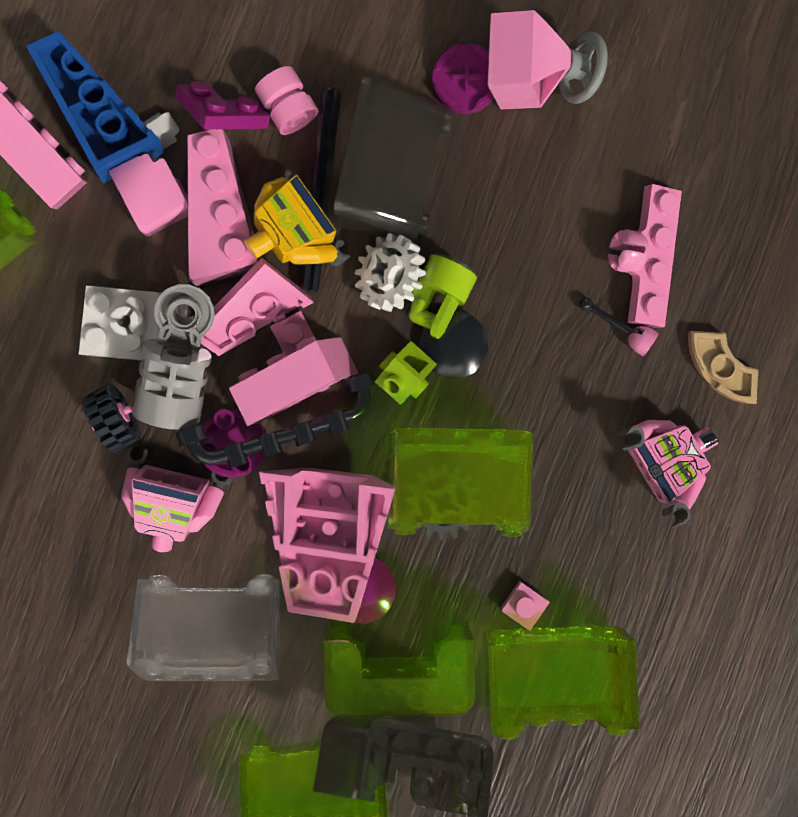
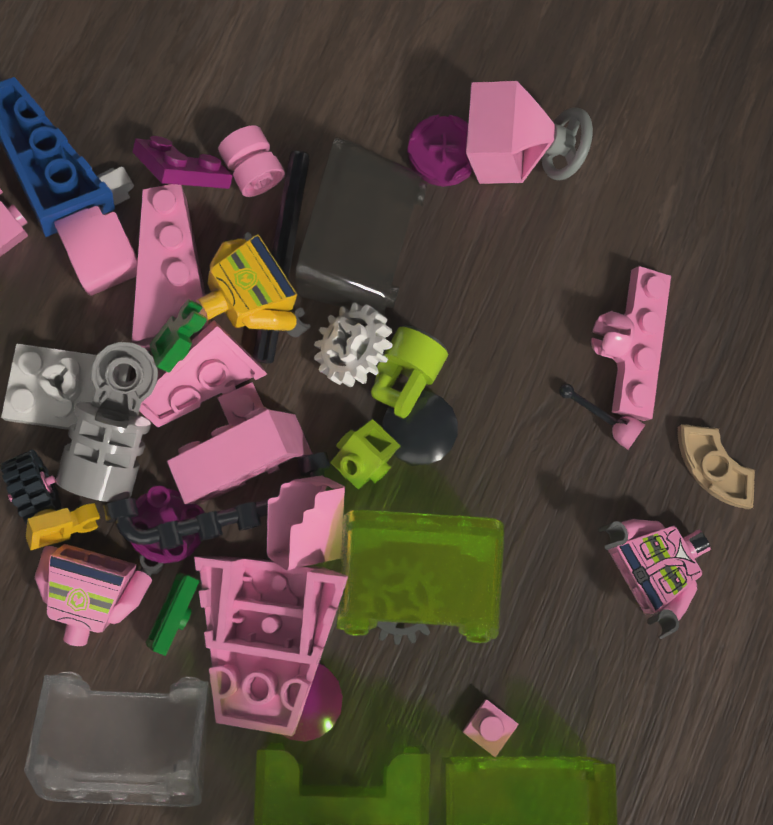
camera: 10 degrees left, 10 degrees down
(133, 451) = (57, 526): none -> yellow plate
(226, 279) = (174, 339): none -> green plate
(244, 521) = (173, 614): none -> green plate
(355, 438) = (305, 523): none -> bright pink piece

